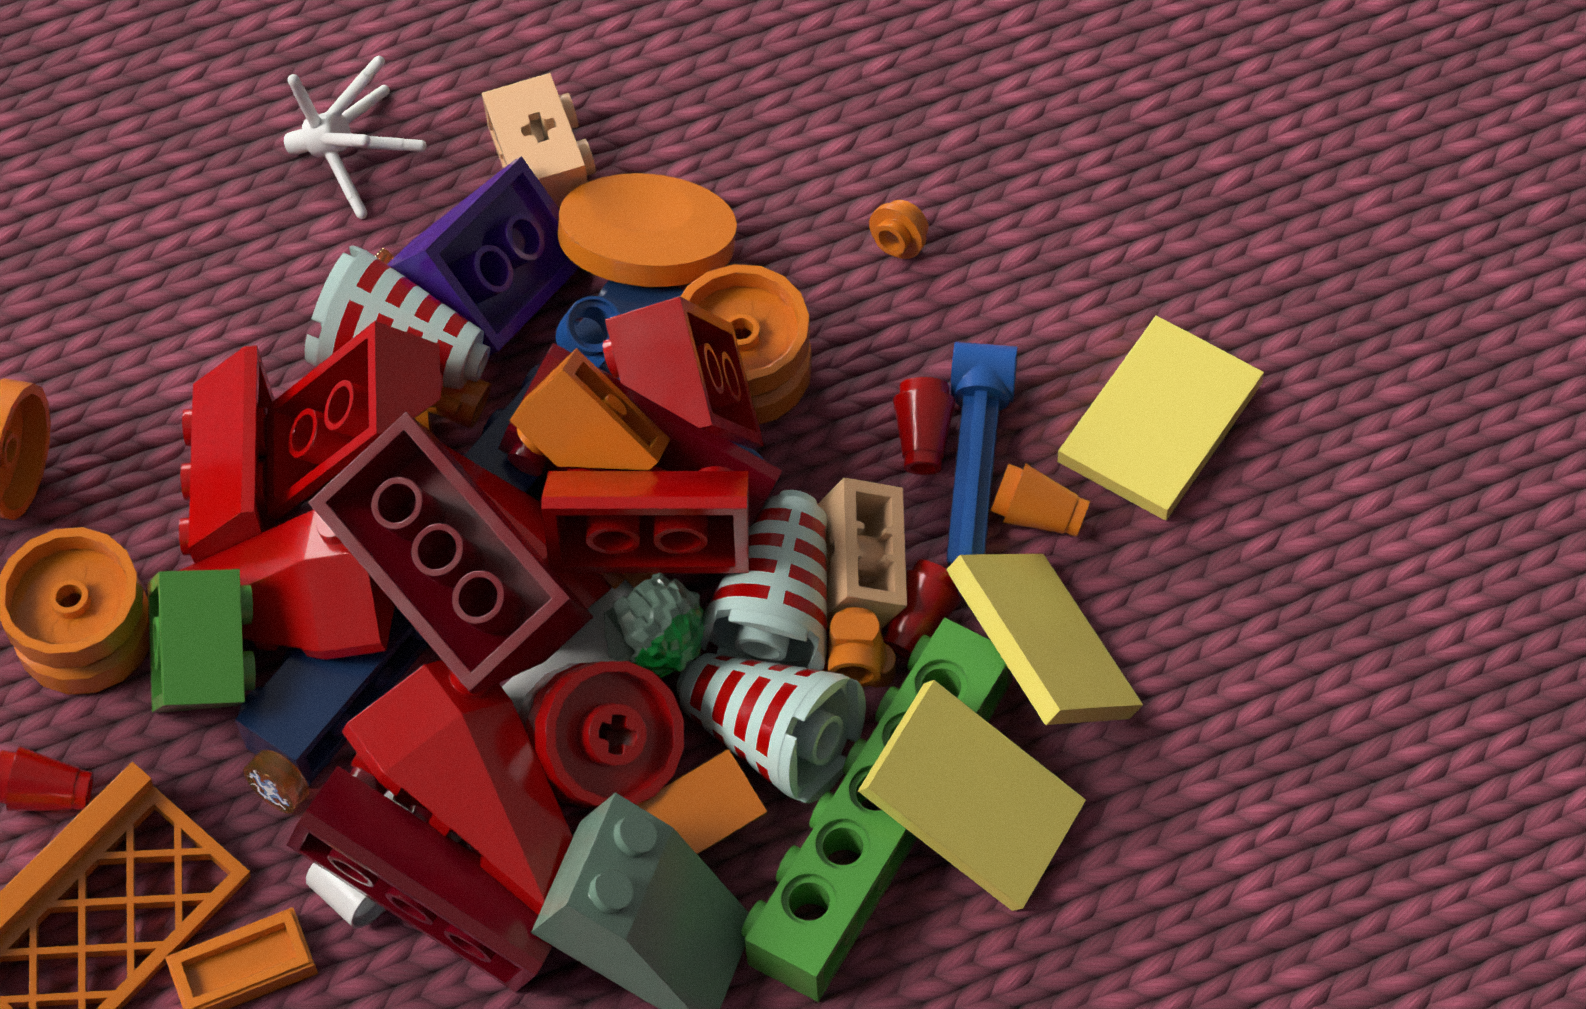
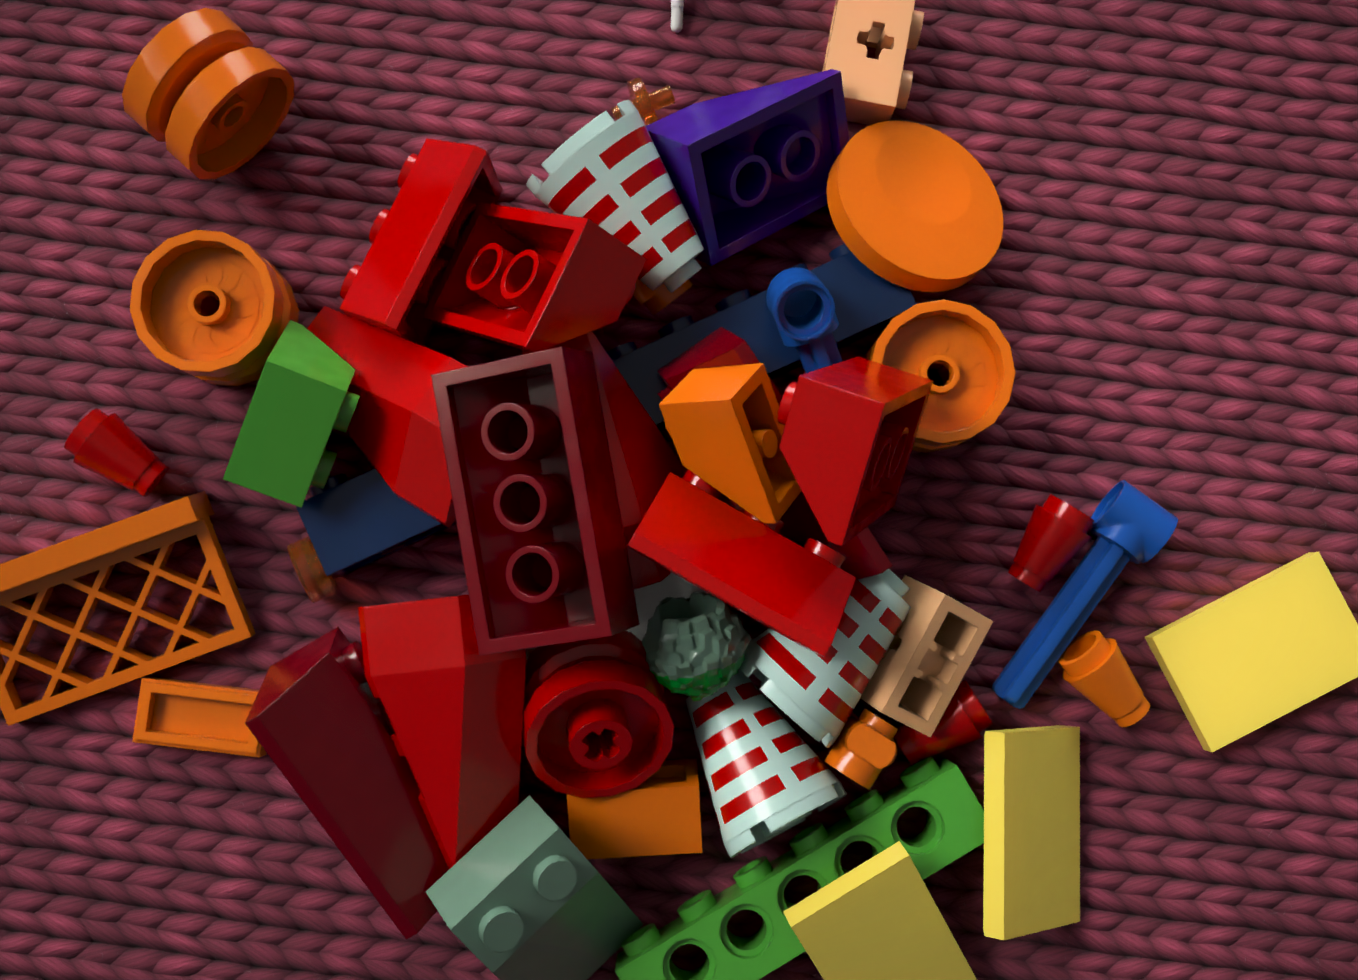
camera: 20 degrees right, 25 degrees up
(899, 229) = (1142, 329): orange plate -> none

